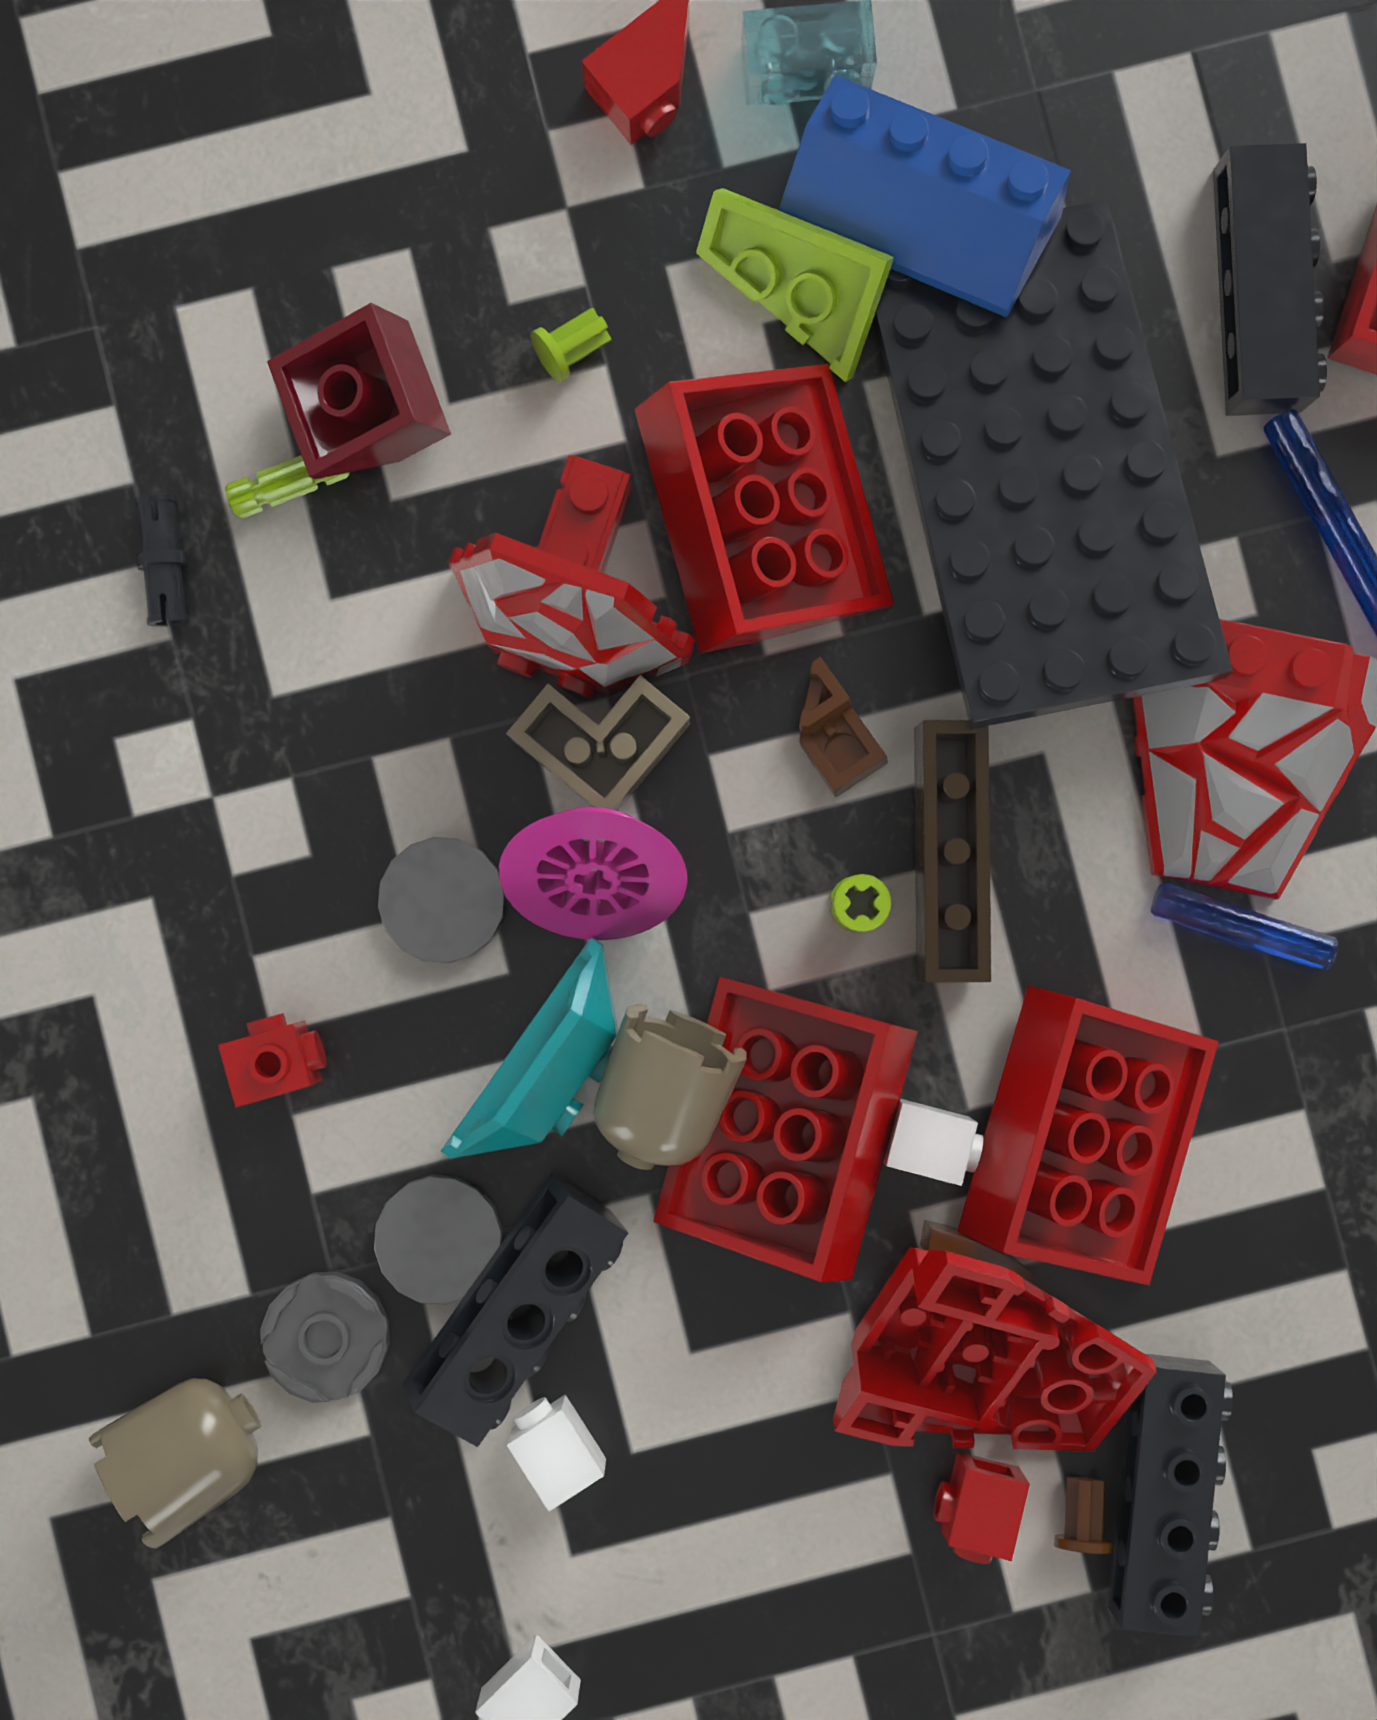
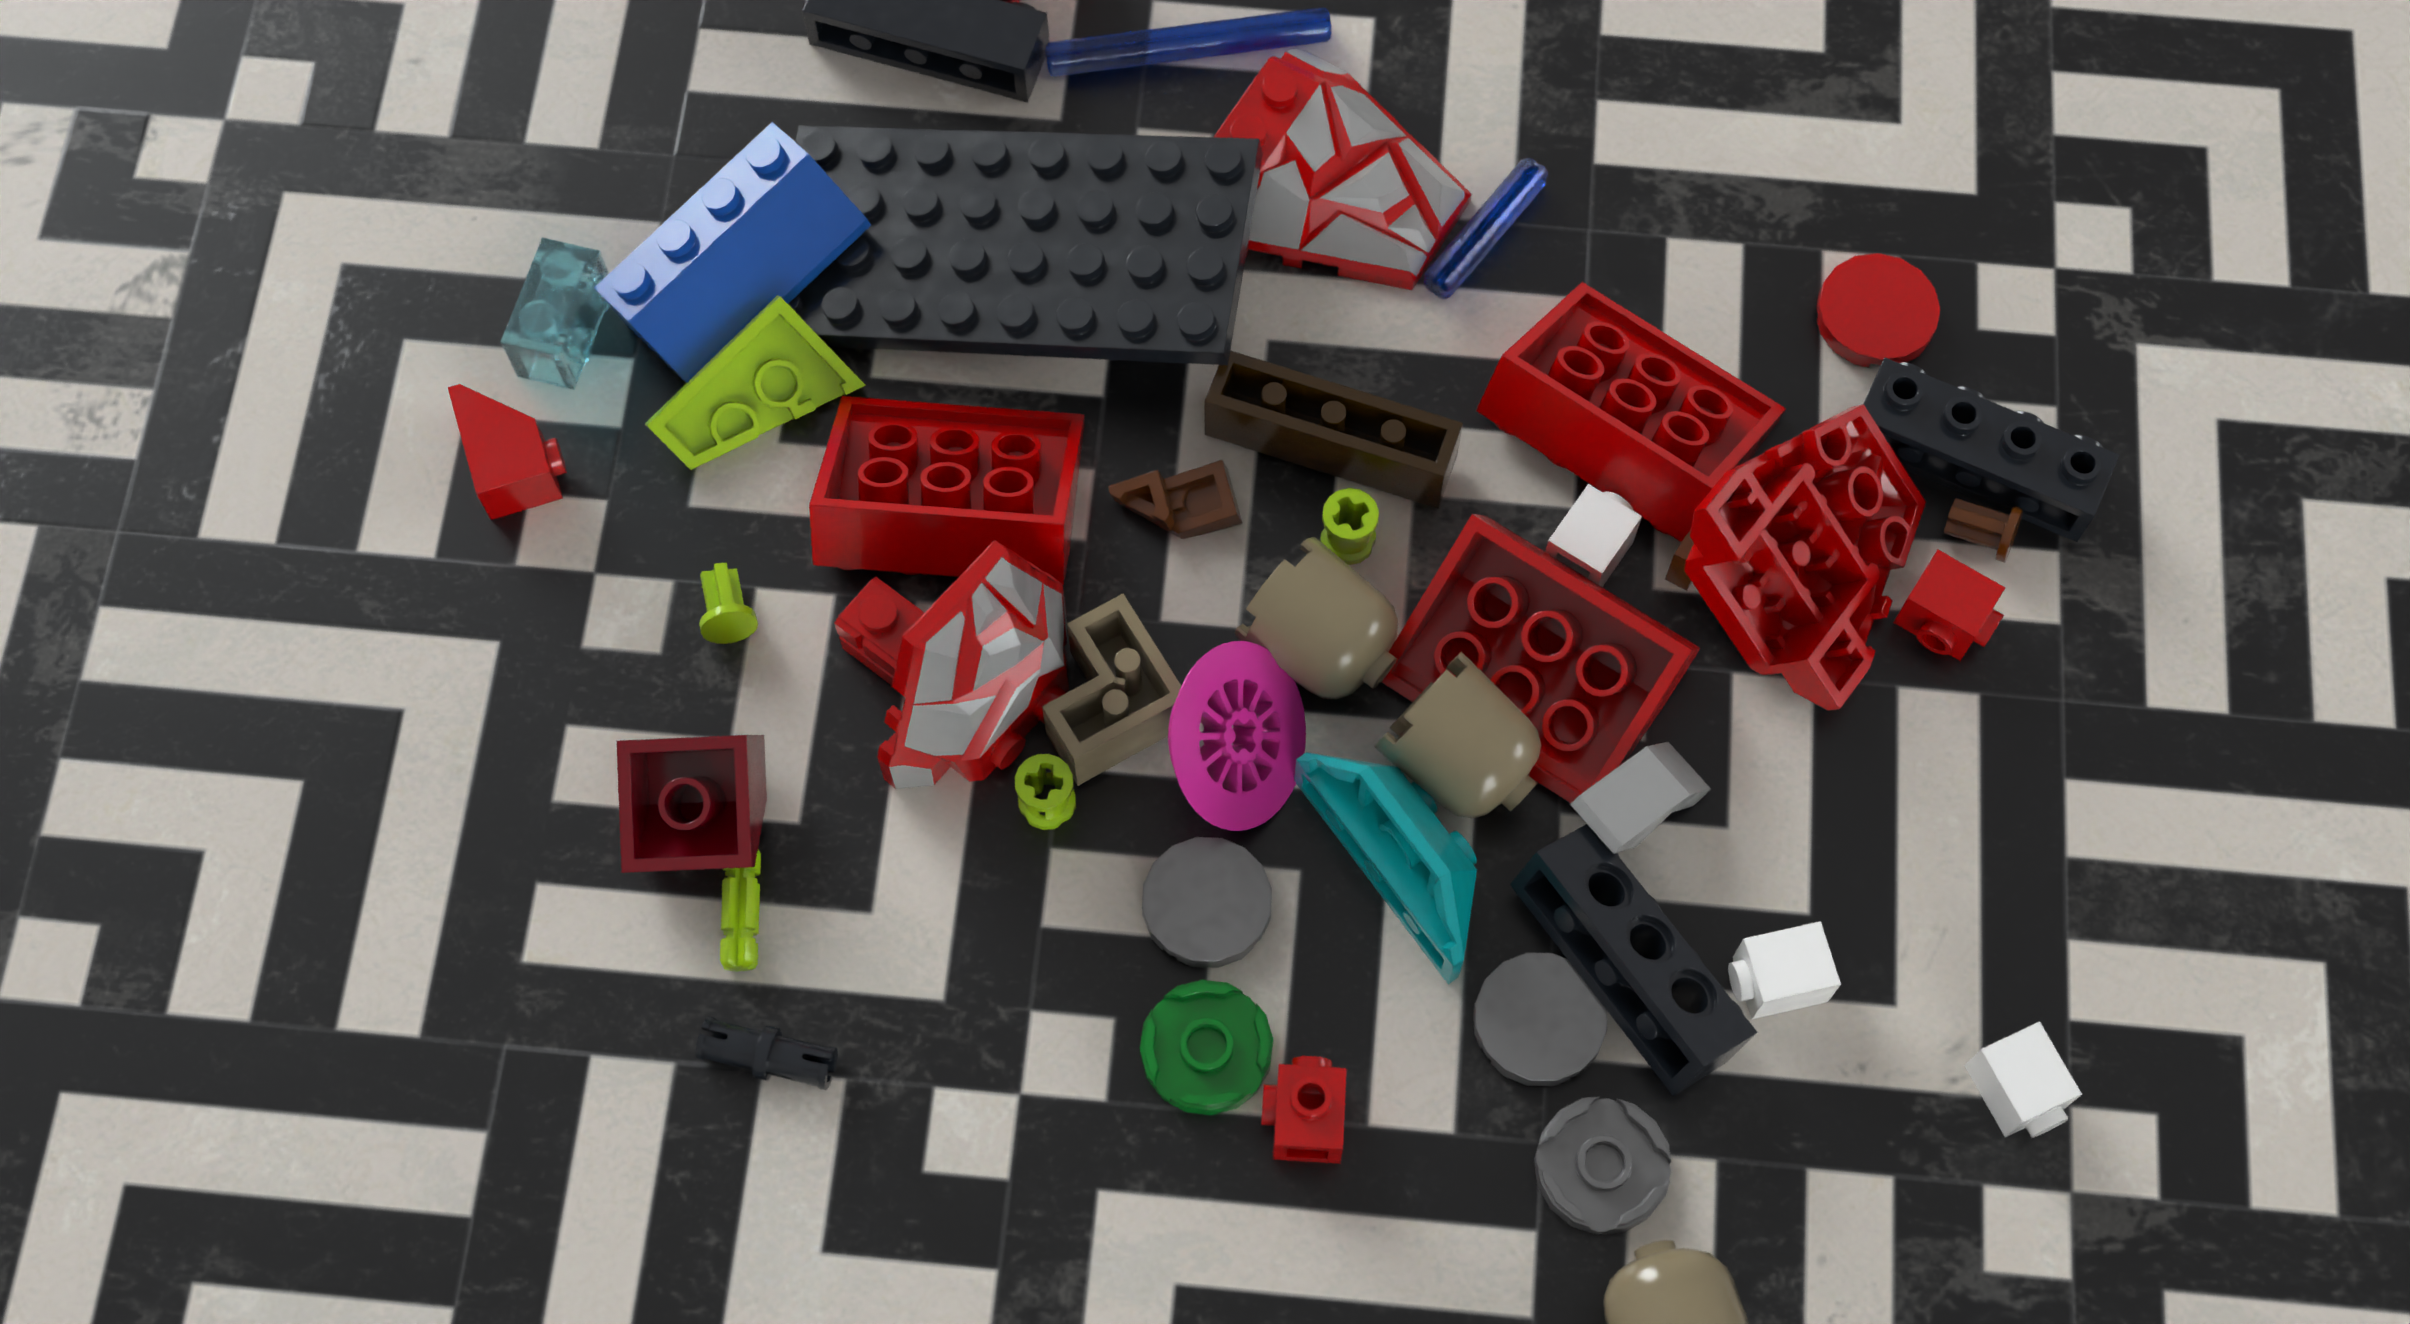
camera: 65 degrees left, 20 degrees down
(308, 948) = (1206, 1047): none -> green tile
(471, 704) = (1030, 782): none -> lime bush
(674, 1270) = (1639, 796): none -> light grey slope
(736, 917) = (1323, 624): none -> dark tan cylinder
(1292, 1346) = (1877, 310): none -> red tile

